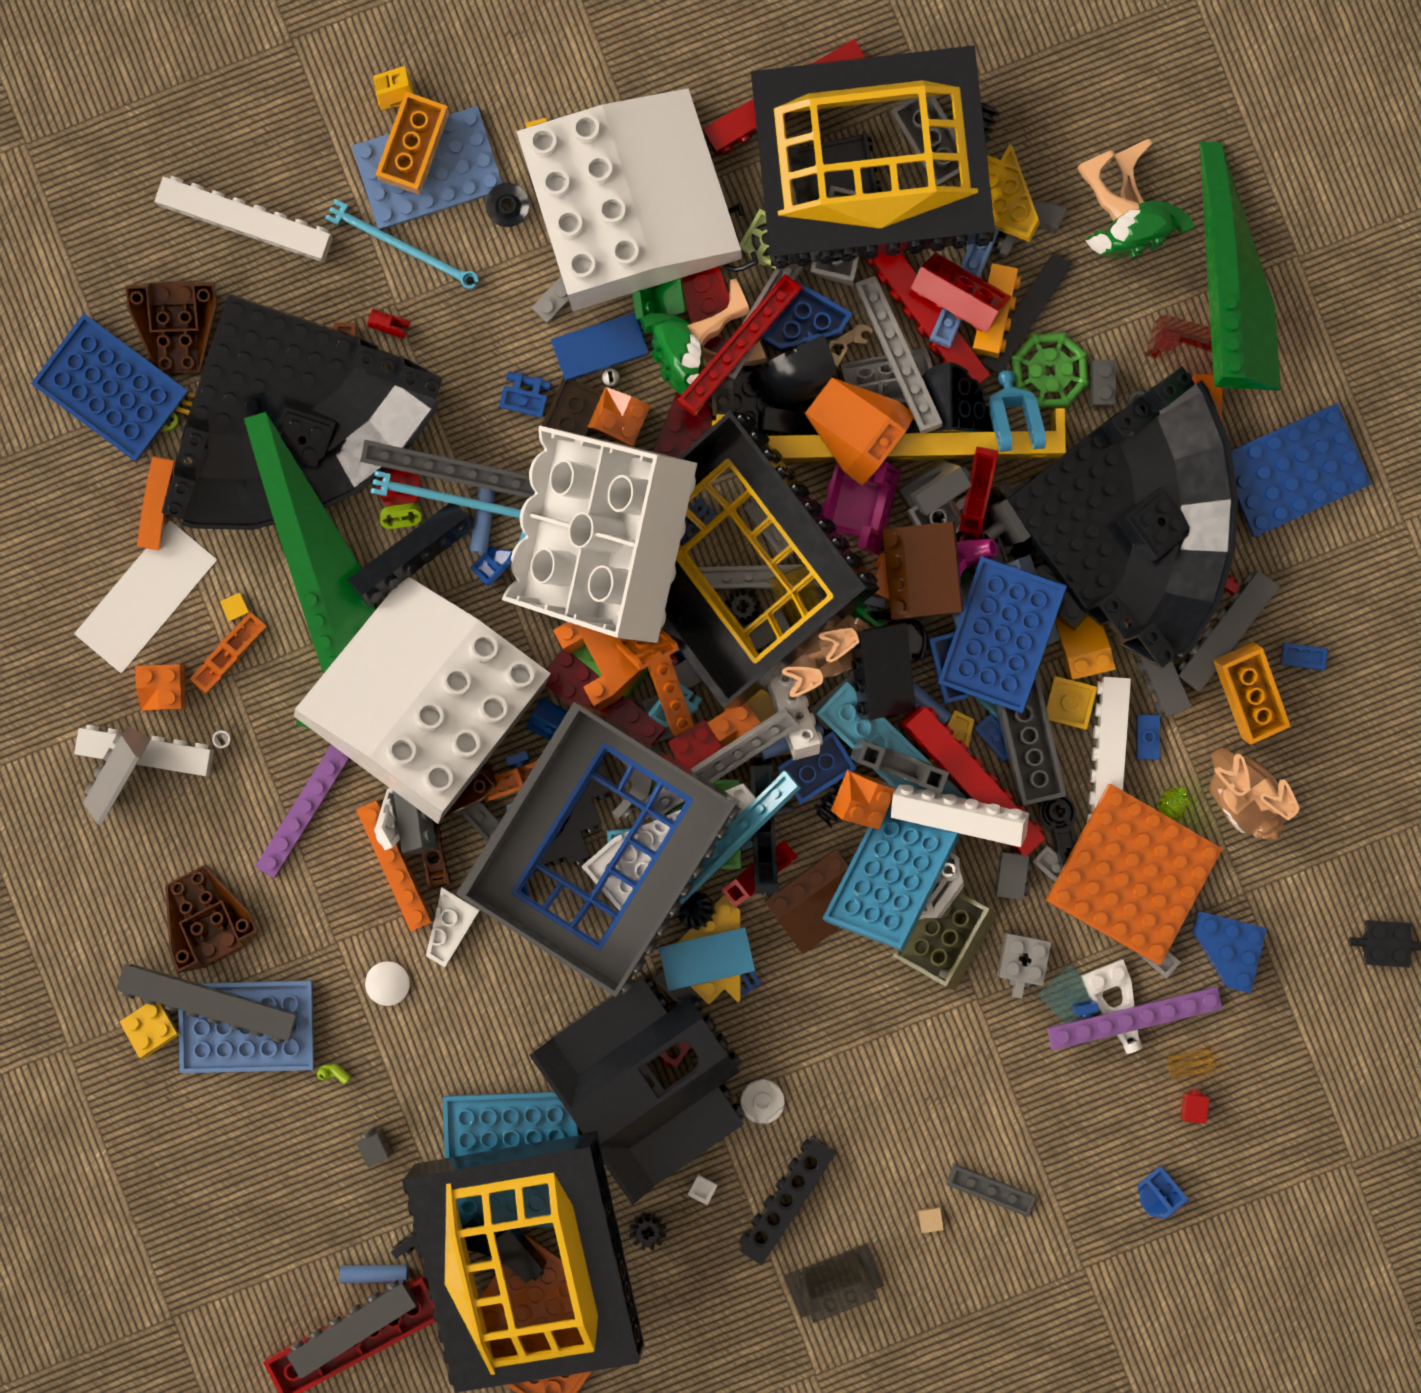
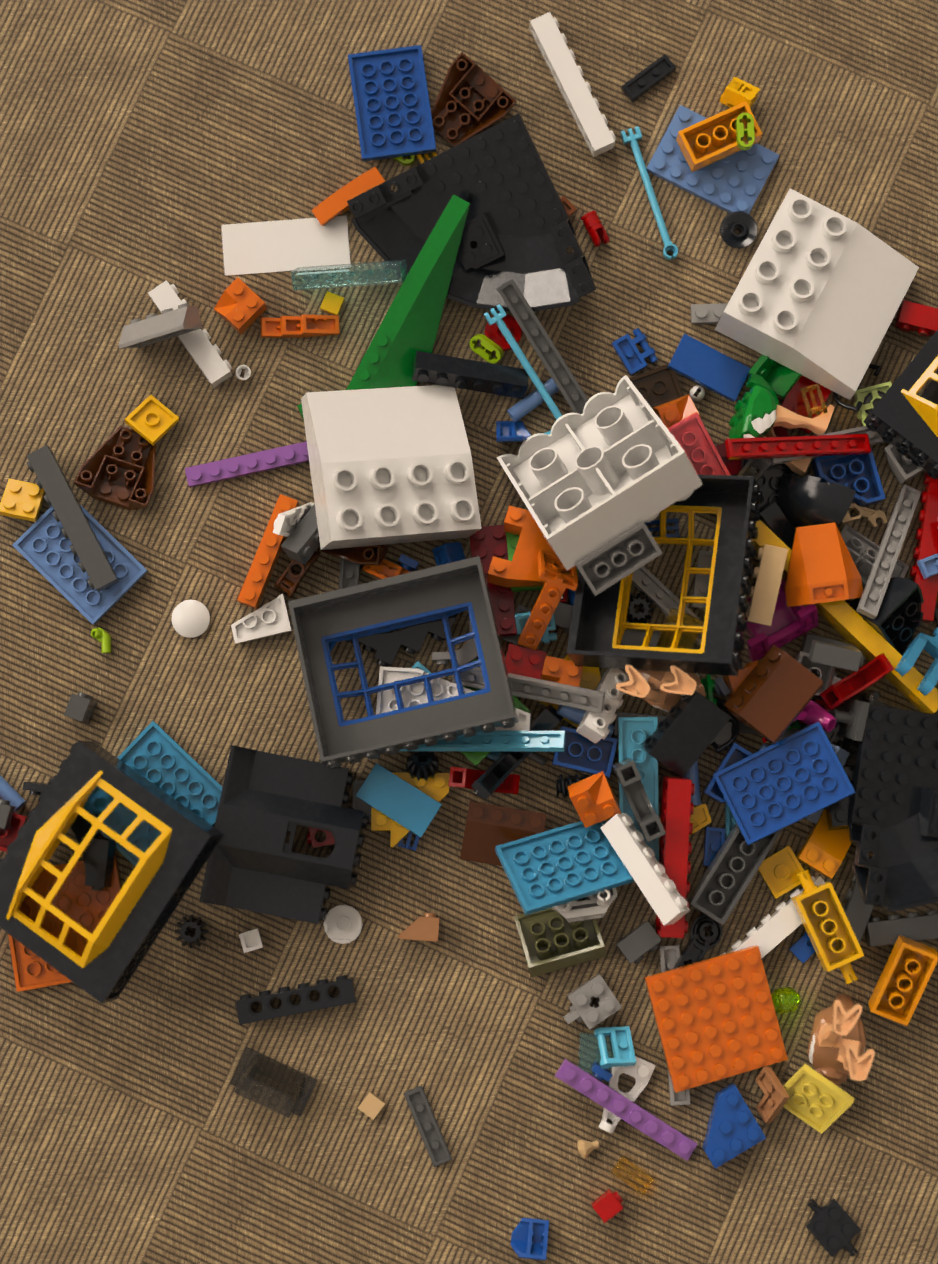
camera: 45 degrees right, 5 degrees down
(187, 854) = (151, 420): none -> yellow plate
(226, 571) = (349, 275): none -> clear light blue brick
(302, 148) = (648, 78): none -> black tile
(427, 122) = (749, 131): none -> lime beam
(659, 428) = (698, 446): none -> coral tile
(689, 590) = (619, 558): none -> light grey slope
(723, 296) = (816, 409): none -> clear yellow tile
(828, 486) = (766, 585): none -> tan brick
(830, 1040) = (423, 928): none -> medium nougat slope
(1079, 971) = (621, 1045): none -> medium azure plate
(1132, 1079) = (586, 1147): none -> tan rock
(1149, 712) = (827, 926): none -> yellow brick
(1240, 887) = (774, 1092): none -> medium nougat plate
(1273, 859) = (815, 1098): none -> light yellow plate

